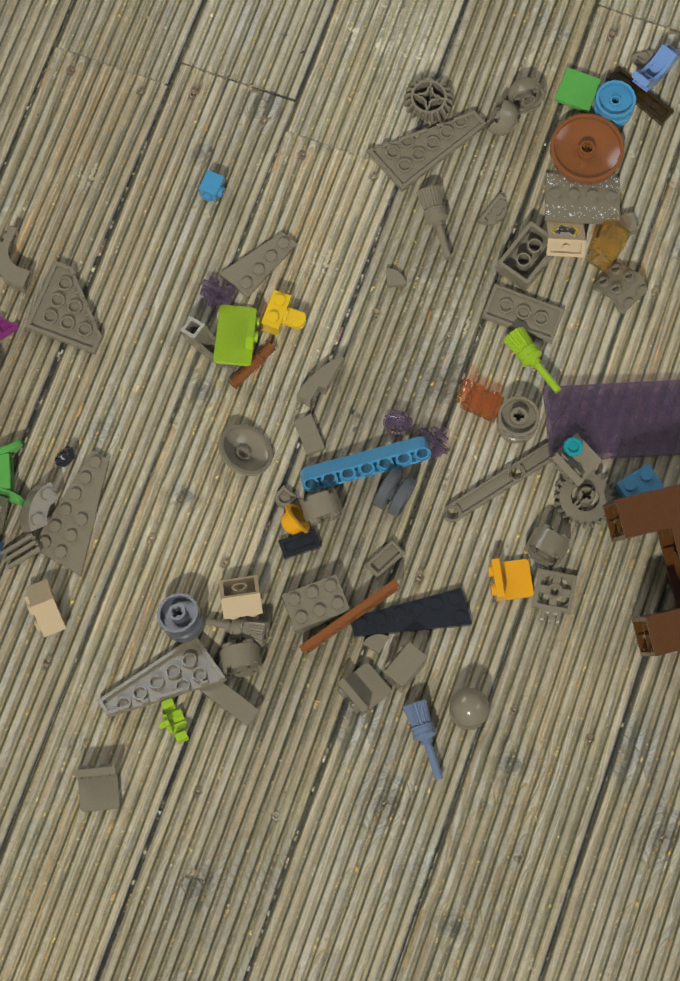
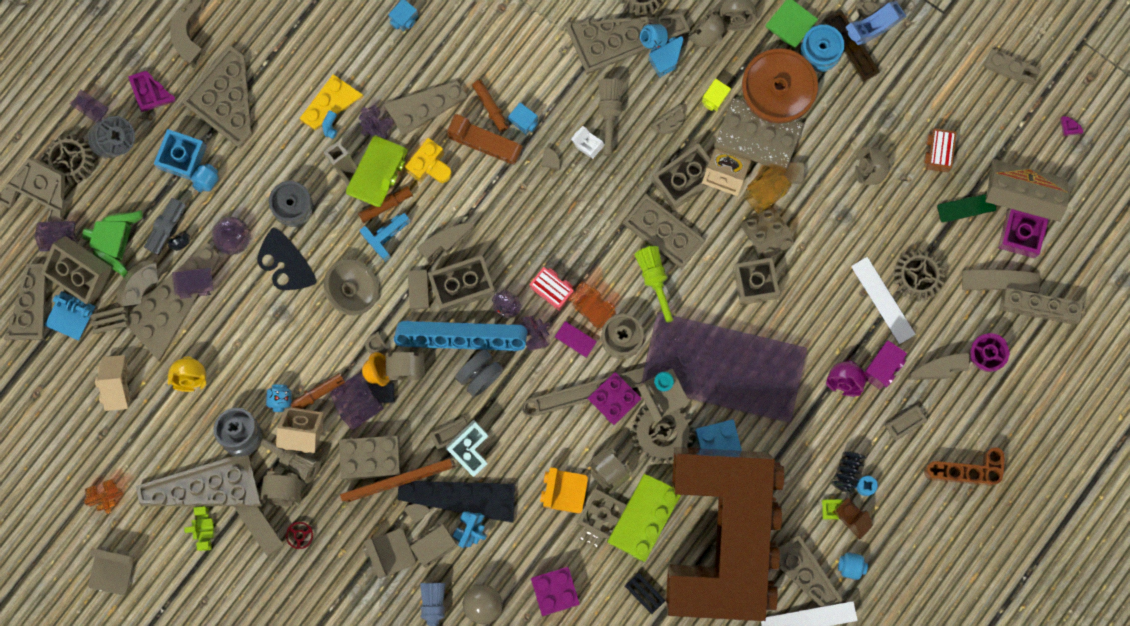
camera: 20 degrees right, 5 degrees up
(40, 375) = (179, 154): none -> dark azure brick
(46, 447) = (165, 226): none -> dark grey piece
(60, 723) = (111, 491): none -> clear orange hips
(70, 390) = (204, 178): none -> dark azure head
(92, 489) = (193, 282): none -> clear purple brick
(113, 437) = (231, 235): none -> clear purple cylinder
(113, 579) = (187, 374): none -> yellow cylinder
(158, 379) = (283, 196): none -> dark grey wheel
(168, 284) = (334, 96): none -> yellow wing
(172, 307) = (327, 125): none -> dark azure arm
(183, 448) = (295, 265): none -> black piece
(209, 574) = (278, 397): none -> dark azure head
(248, 554) = (317, 392): none -> dark orange pin
(260, 392) = (385, 234): none -> dark azure bracket
(266, 697) = (295, 535): none -> dark red piece
(284, 555) = (355, 401): none -> clear purple bracket
(326, 279) = (482, 140): none -> dark orange beam
(327, 250) = (494, 112): none -> dark orange pin
(350, 415) = (461, 283): none -> dark tan brick
(357, 248) = (523, 119): none -> dark azure brick
(403, 565) = (464, 448): none -> light aqua brick
(424, 252) = (587, 142): none -> white bracket
(435, 634) = (473, 530): none -> dark azure hips
(436, 395) = (552, 288): none -> brick
(456, 136) = (653, 36): none -> dark azure head
(472, 154) = (666, 58): none -> dark azure slope
(473, 436) = (575, 339): none -> magenta tile
(529, 479) = (614, 398): none -> magenta hinge
(530, 175) = (716, 95): none -> neon yellow brick
(534, 675) = (555, 591): none -> magenta brick
(595, 581) = (644, 518): none -> lime slope
(619, 644) = (656, 605): none -> black tile
(626, 332) = (756, 281): none -> dark tan brick

